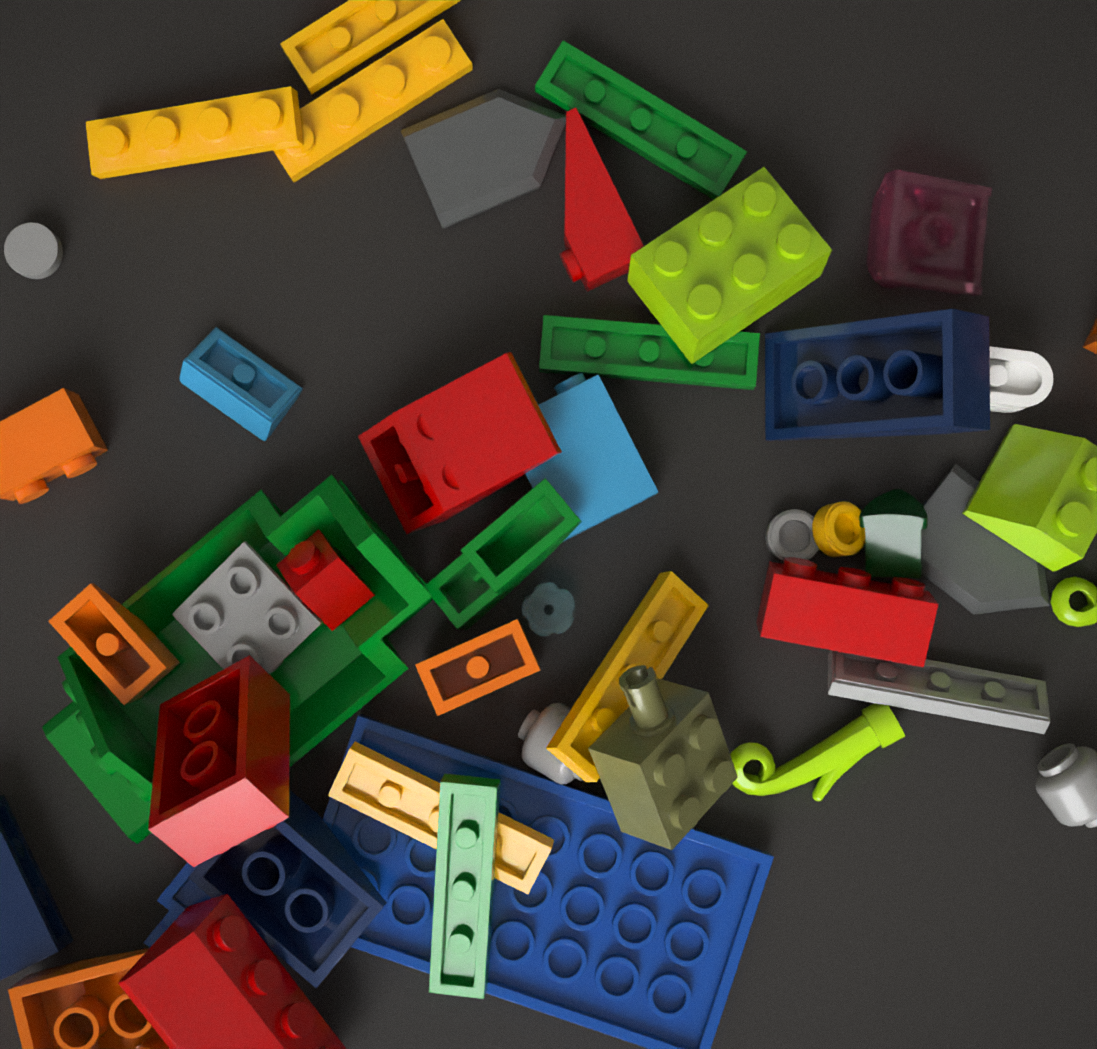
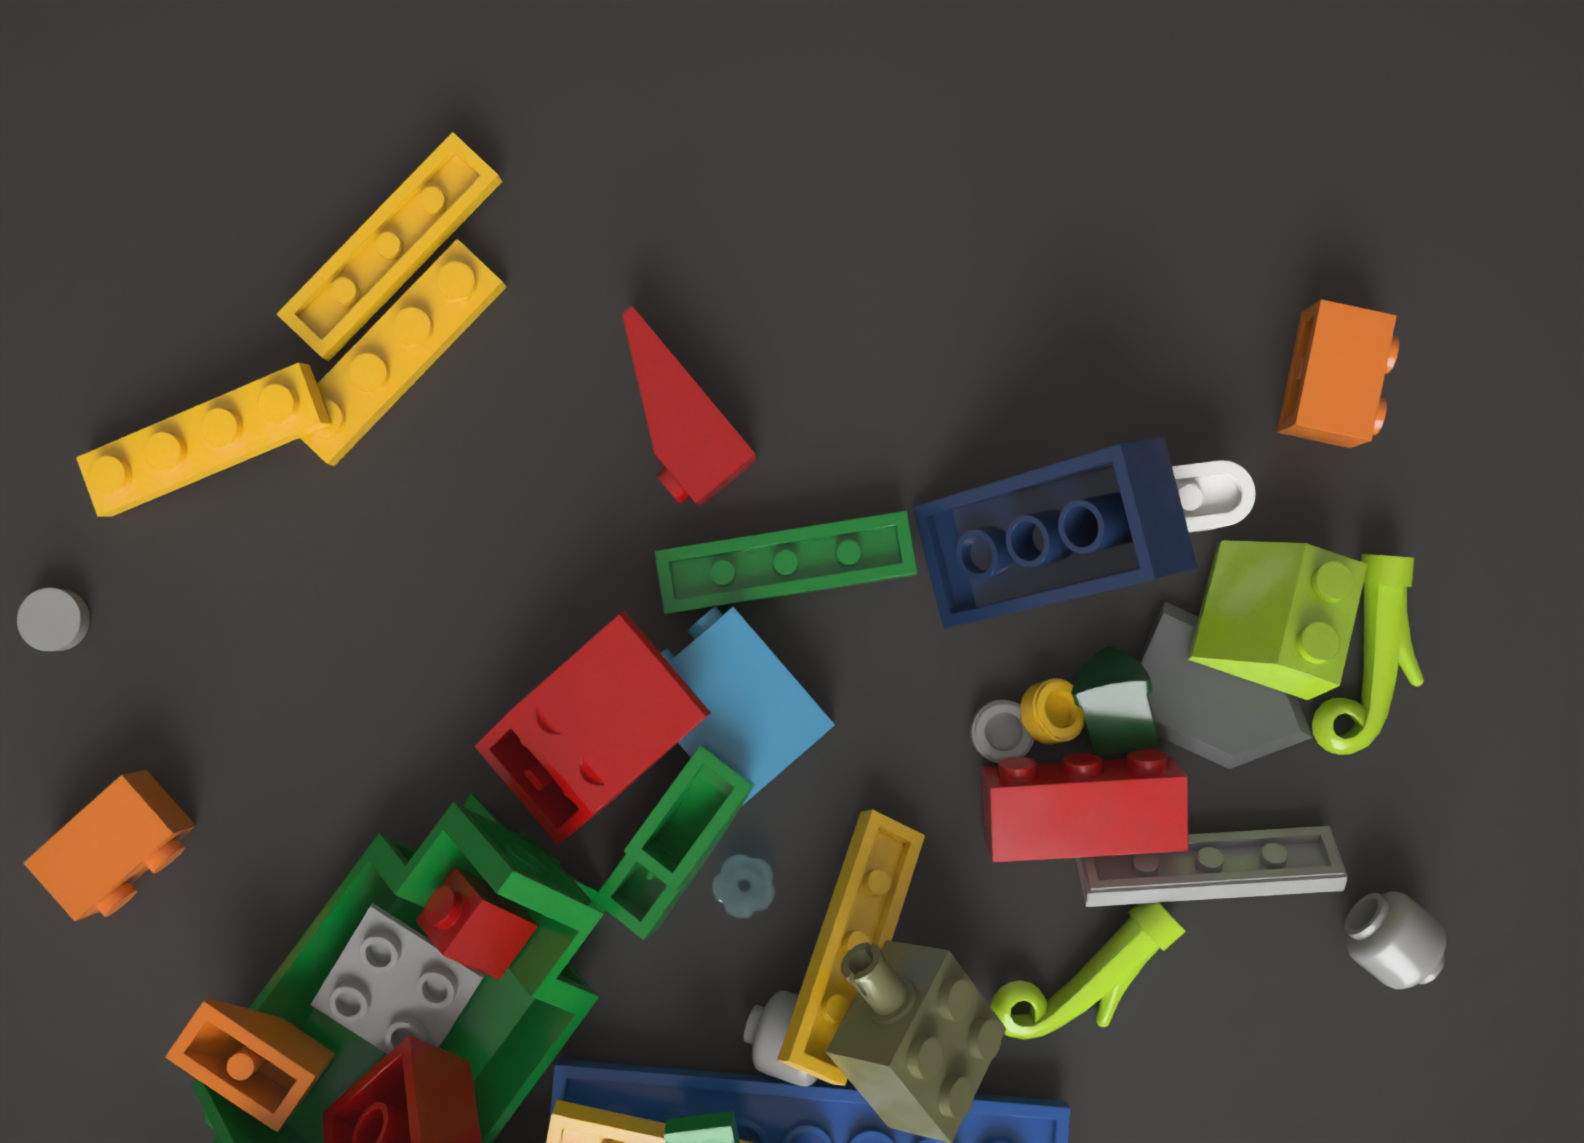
camera: 15 degrees left, 0 degrees up
(239, 383) = (327, 712): dark azure slope -> none
(478, 667) = (678, 976): orange brick -> none
(483, 153) = (541, 380): dark grey tile -> none
(640, 121) = (710, 300): green plate -> none
(728, 264) = (850, 443): lime brick -> none
(928, 233) = (1070, 349): clear pink slope -> none

